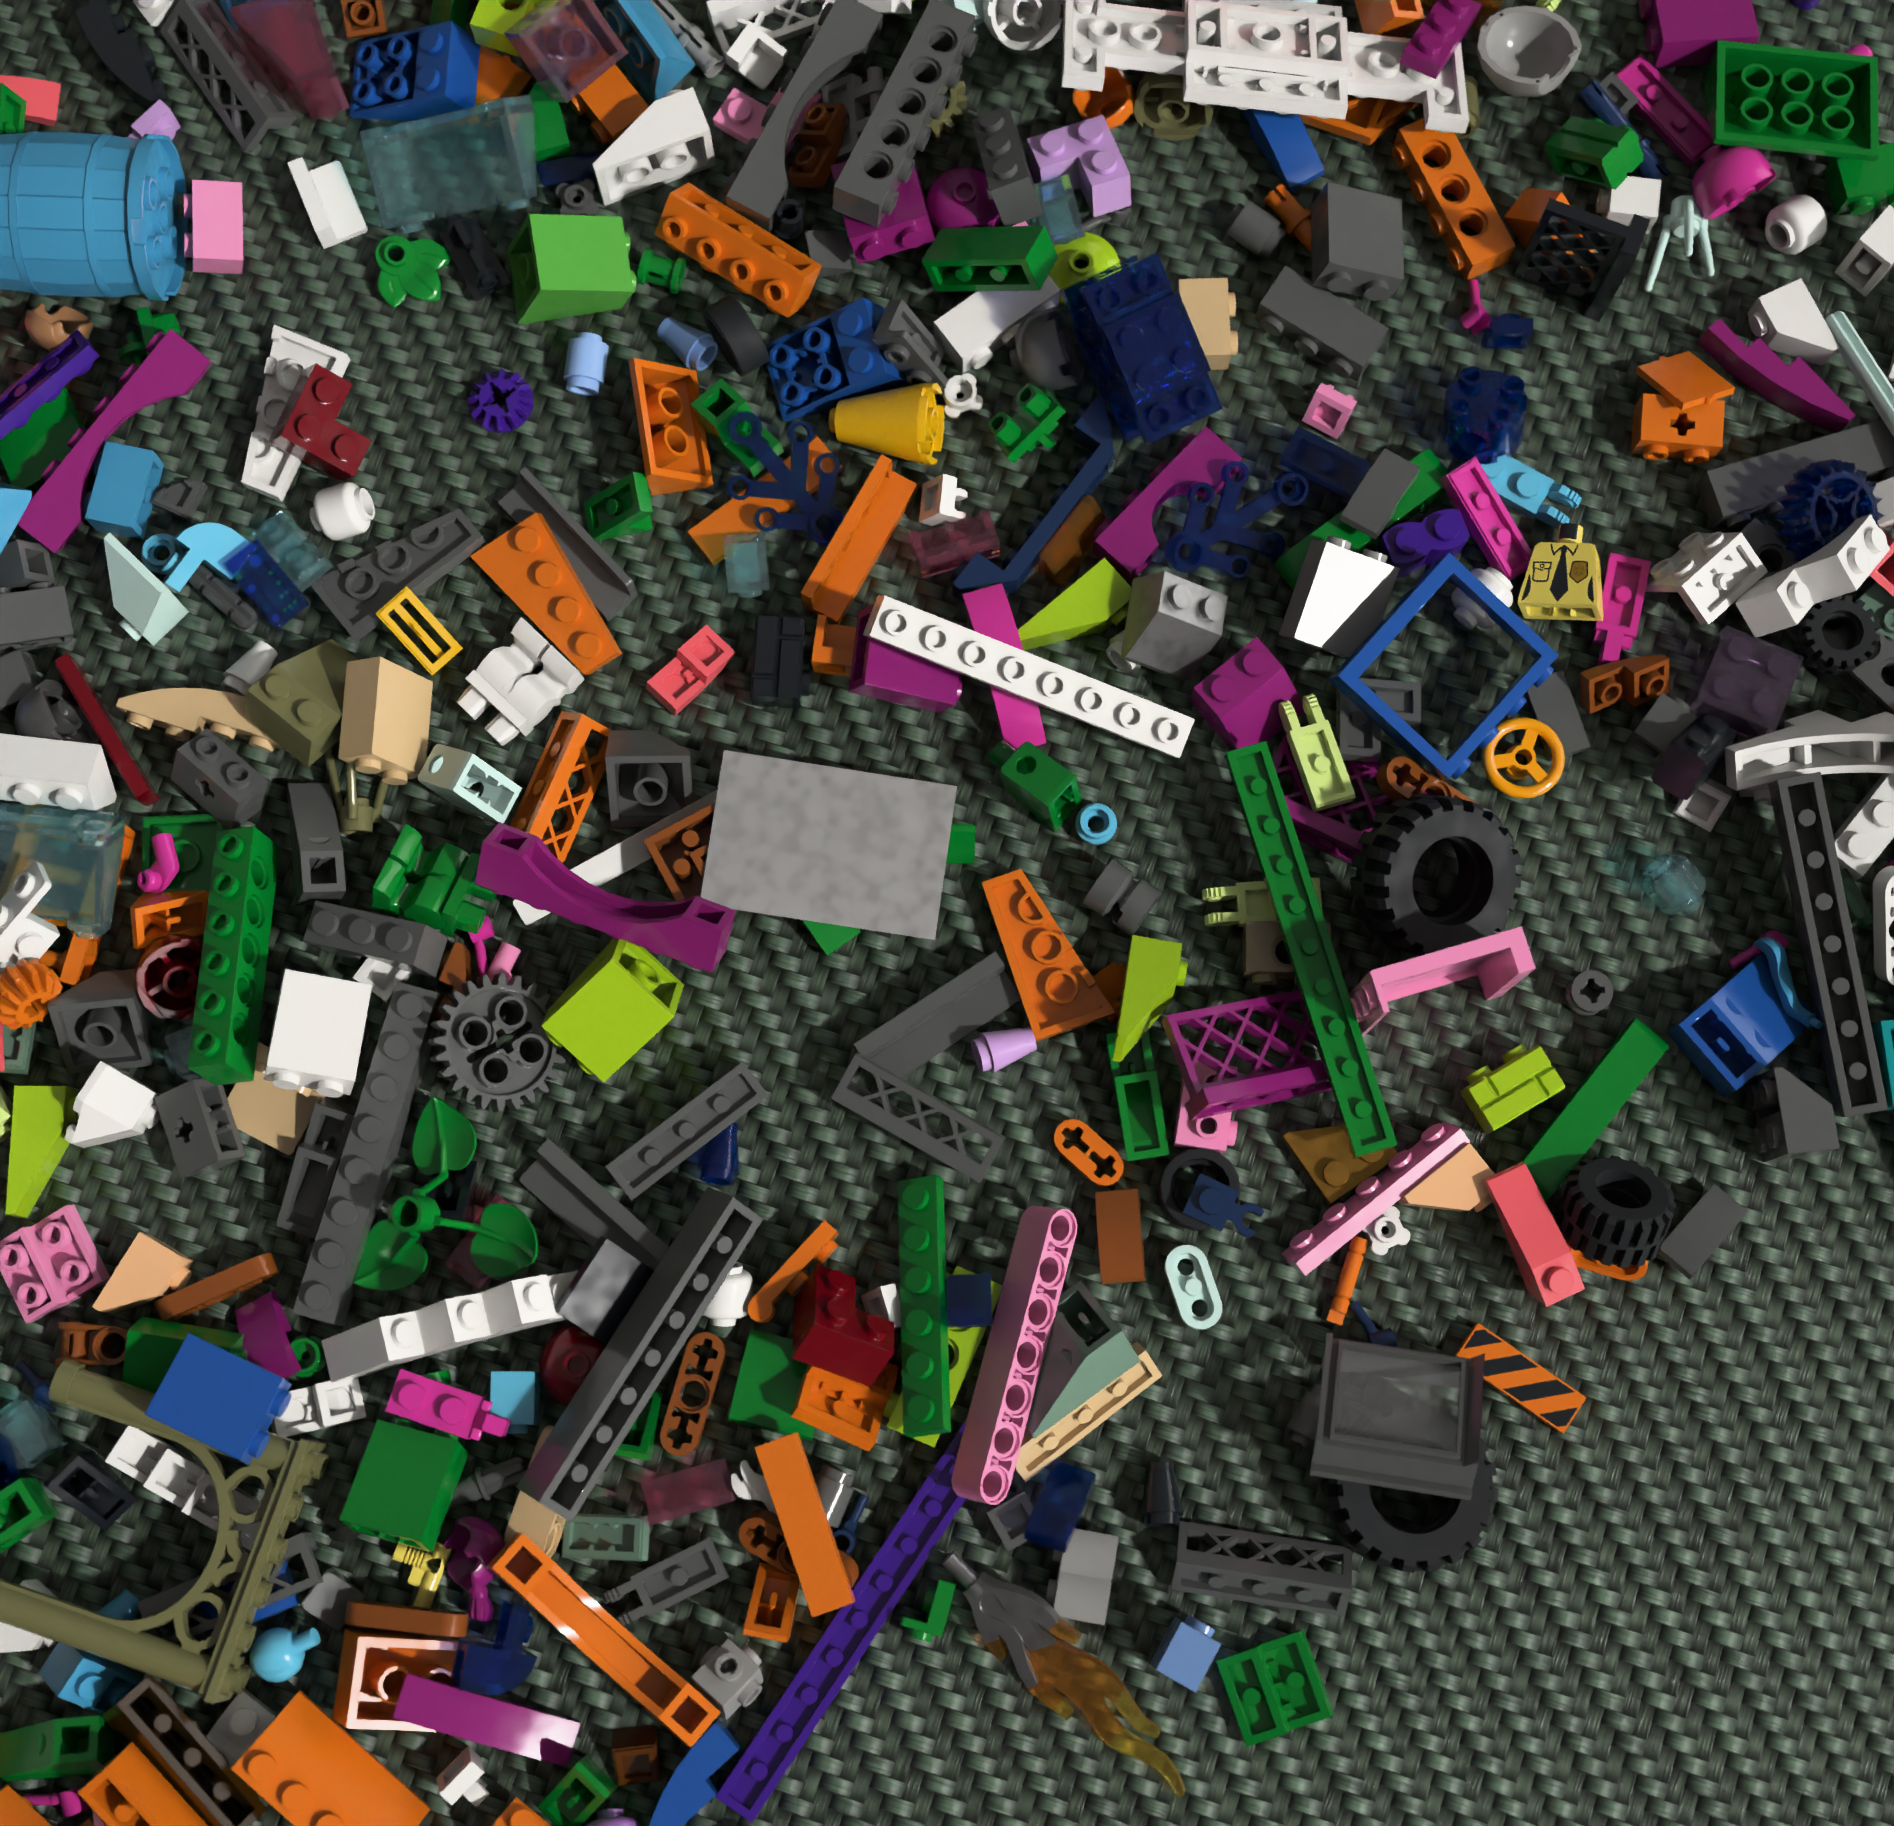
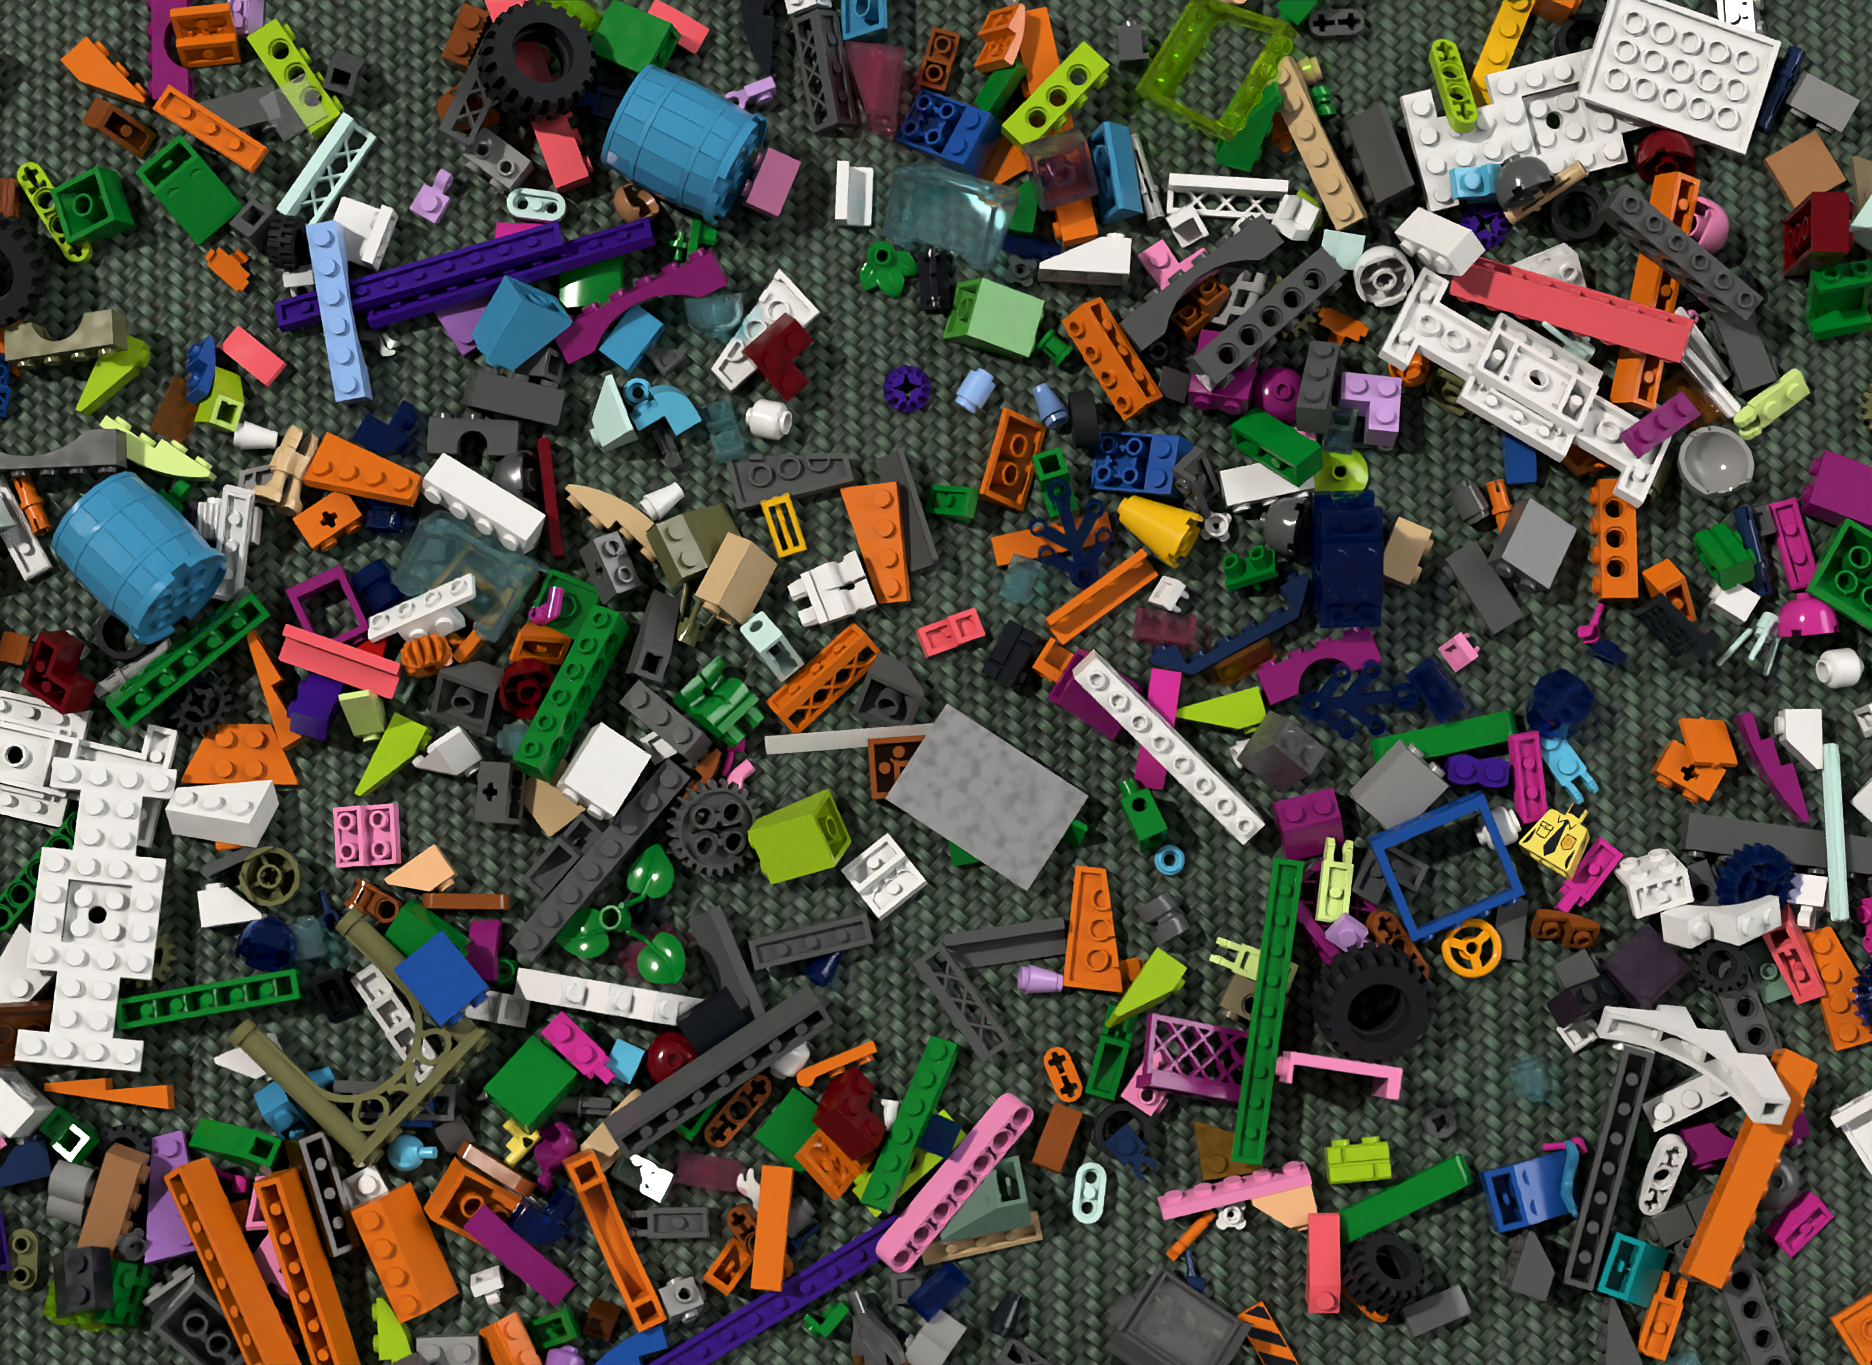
camera: 25 degrees right, 5 degrees up
(213, 409) = (714, 312): none -> clear light blue cylinder
(265, 584) = (697, 447): clear blue tile -> none
(526, 870) = (865, 810): magenta arch -> none
(745, 1009) = (884, 876): none -> white slope
(1000, 94) = (1341, 326): none -> orange piece
(1360, 805) = (1347, 932): none -> lavender plate
(1380, 493) = (1461, 728): dark grey slope -> none

